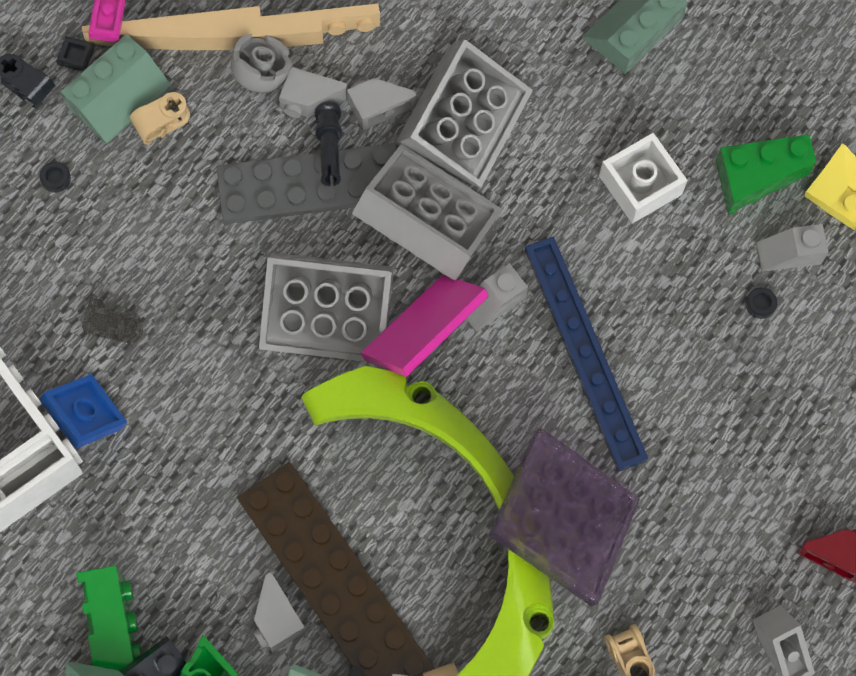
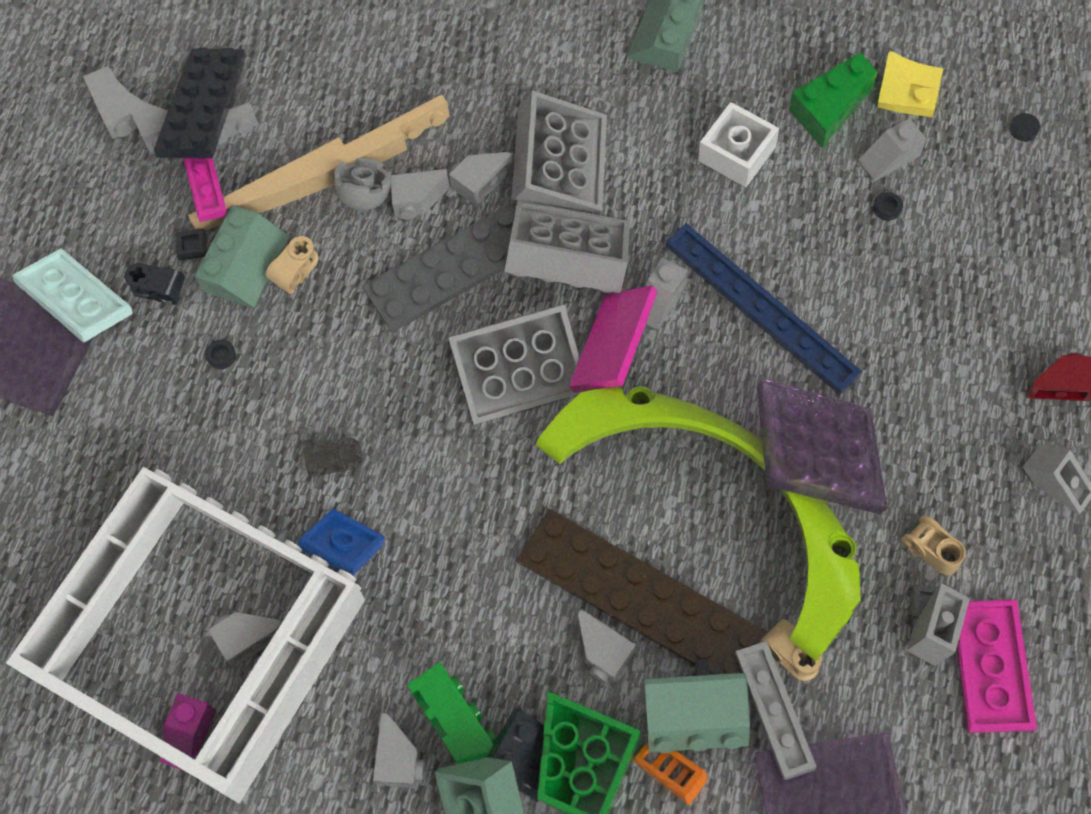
camera: 15 degrees left, 5 degrees down
(44, 632) = (396, 757): none -> light grey slope
(328, 133) = (450, 218): black pin -> none

